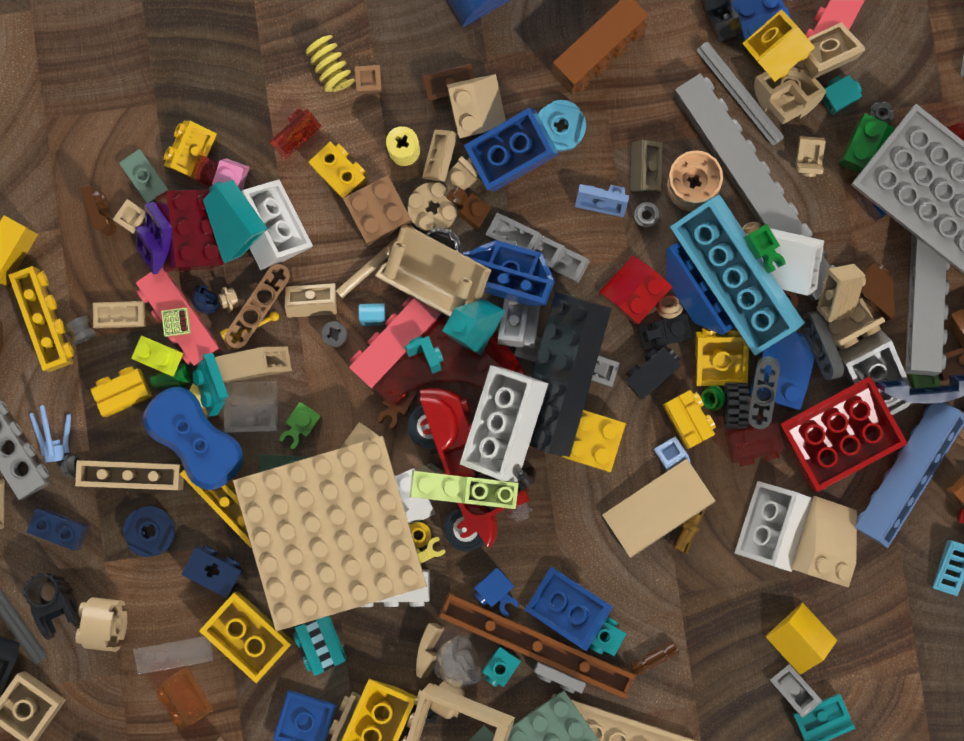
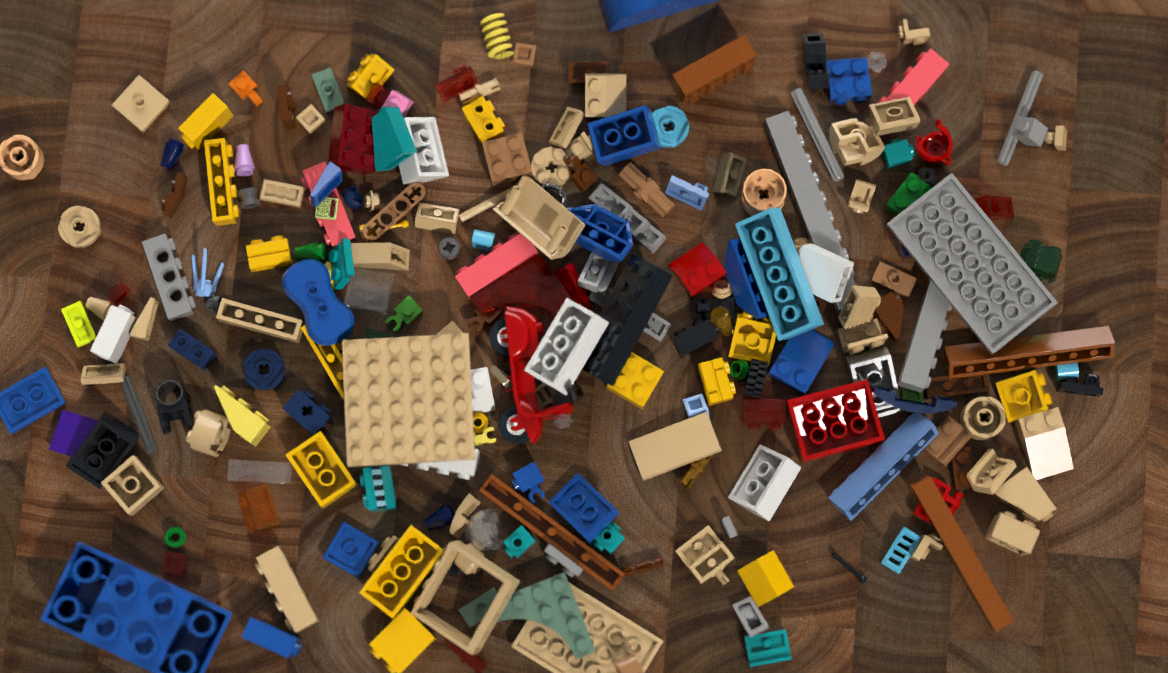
camera: 10 degrees right, 5 degrees down
(43, 197) = (244, 87): none -> orange plate
(63, 287) = (243, 163): none -> lavender cone
(137, 600) = (244, 422): none -> light yellow slope
(154, 238) = (325, 139): dark purple slope -> none
(157, 356) = (304, 232): neon yellow plate -> none
(169, 290) = (326, 184): none -> blue slope
(324, 136) = (479, 91): none -> tan pin
(402, 658) = (440, 518): none -> clear blue cone
(403, 136) = (539, 113): light yellow piece -> none
(432, 355) = (518, 272): teal bracket -> none
(463, 490) = (522, 390): yellowish green slope -> none
(474, 324) = (561, 264): teal slope -> none
(552, 208) = (646, 190): none -> medium nougat piece
(646, 206) = (720, 206): light grey plate -> none
(680, 345) = (722, 320): none -> clear yellow cone
(725, 630) = (705, 556): none -> tan plate
(744, 589) = (728, 527): none -> light grey tile
(759, 382) = (789, 360): dark grey beam -> none
(763, 244) = (805, 254): green plate -> none
(779, 45) = (854, 103): yellow brick -> none
(822, 345) = (835, 347): dark grey beam -> none
(828, 542) = (803, 505): tan slope -> none
(871, 246) = (894, 279): none -> medium nougat plate
(889, 67) = (937, 140): none -> red hair
(915, 612) = (862, 579): none -> black hinge

